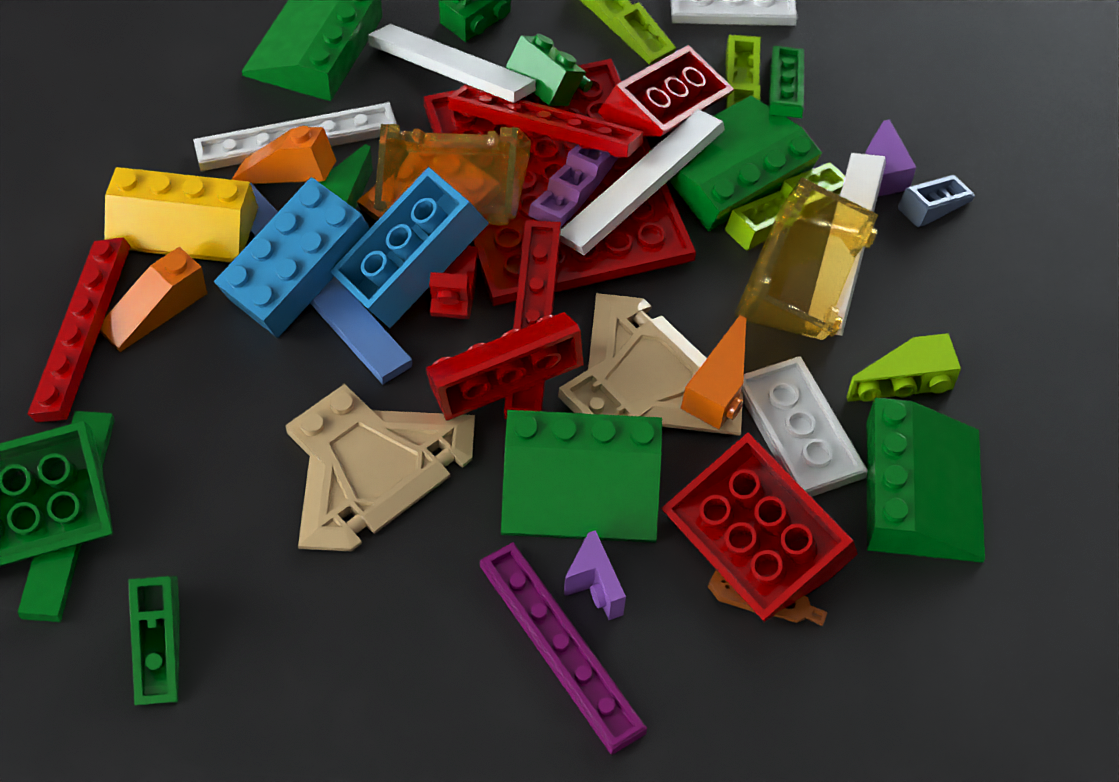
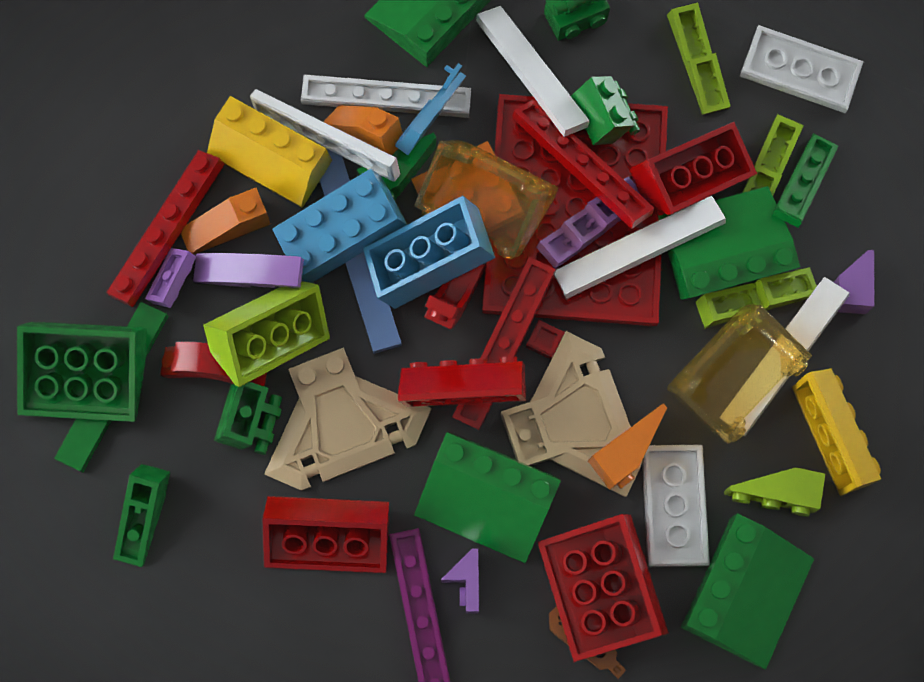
camera: 20 degrees right, 20 degrees up
(105, 374) = (171, 277): none -> medium lavender plate
(190, 433) = (195, 360): none -> red arch
(198, 331) = (248, 270): none -> medium lavender slope
(248, 379) = (267, 331): none -> lime slope
(249, 484) = (242, 414): none -> green brick
(265, 176) = (327, 136): none -> white tile
(356, 121) = (430, 111): none -> dark azure piece
(403, 584) = (325, 534): none -> red slope
(578, 307) = (545, 339): none -> red tile
(931, 199) = (863, 336): sand blue slope -> none
(936, 296) = (836, 431): none -> yellow slope

